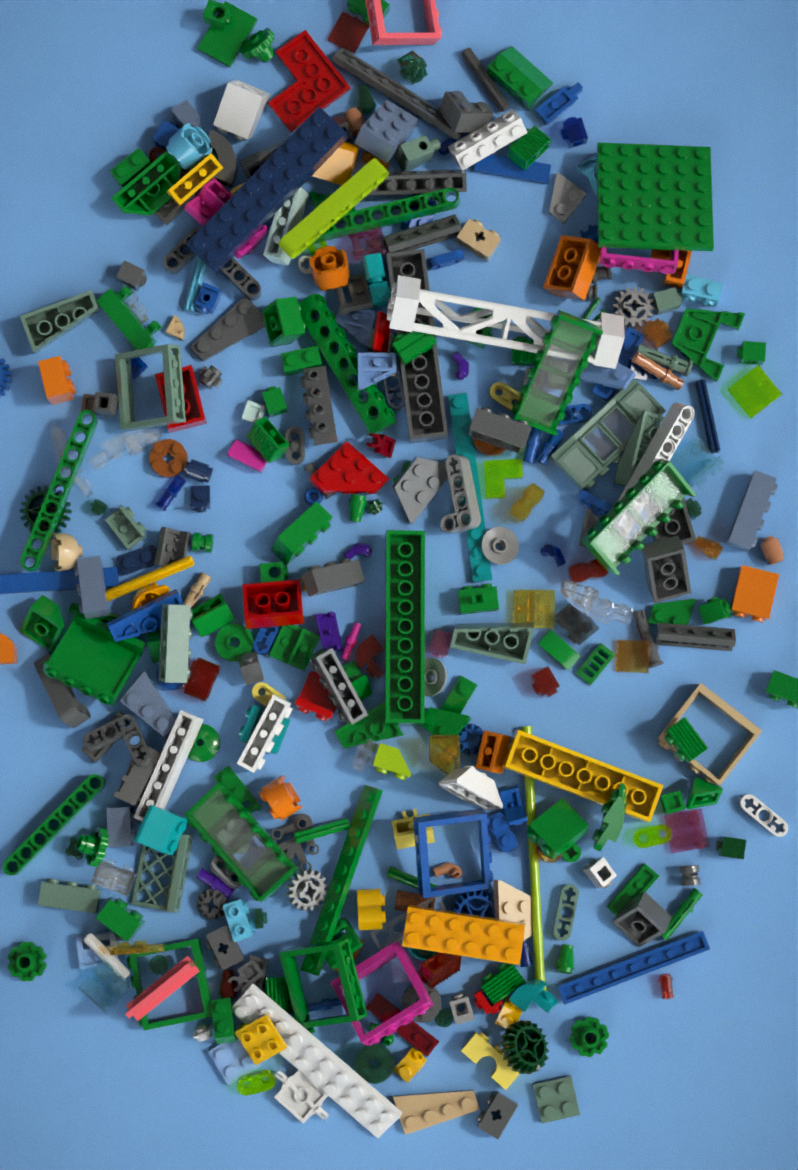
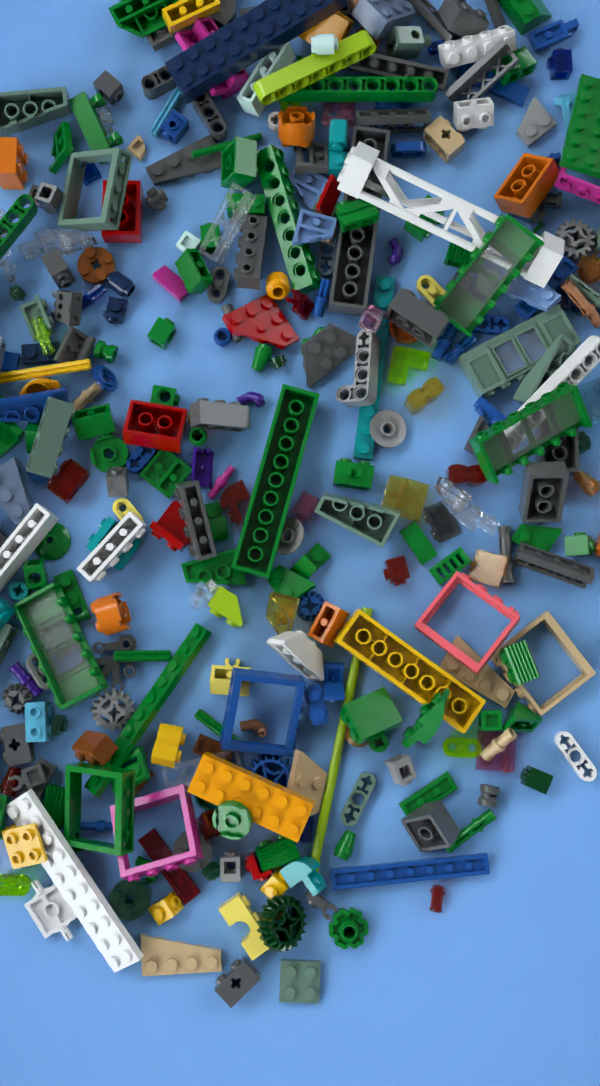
camera: 10 degrees right, 0 degrees up
(101, 348) = (61, 147): none -> green wing
(134, 473) = (58, 269): none -> dark grey brick
(137, 544) = (42, 335): none -> clear neon green pin
(154, 509) = (67, 307): none -> dark grey piece
(188, 800) = (23, 591): none -> teal wheel
(196, 771) = (35, 566): none -> green brick
(209, 569) = (104, 378): none -> blue gear
(253, 508) = (162, 332): none -> green brick
(260, 306) = (220, 147): none -> green bar
(296, 386) = (233, 227): none -> clear fence
(301, 533) = (201, 367): green wedge -> none
(301, 930) = (94, 748): none -> dark orange brick
(317, 598) = (195, 433): none -> green cone
(338, 187) = (324, 44): none -> light aqua brick
(354, 432) = (277, 285): none -> light orange head
(400, 433) = (321, 298): none -> blue axle
(452, 960) = (232, 820): none -> tile
(456, 443) = (372, 319): none -> clear pink brick
(494, 166) = (479, 70): none -> dark grey fence
(501, 207) = (473, 114): none -> white brick
(551, 1018) = (321, 902): none -> flat silver plate
(555, 552) = (437, 448): clear blue arm -> none
(631, 681) = (481, 592): none -> coral window
(646, 761) = (486, 683): none -> tan wing
(686, 823) = (498, 744): none -> tan pin

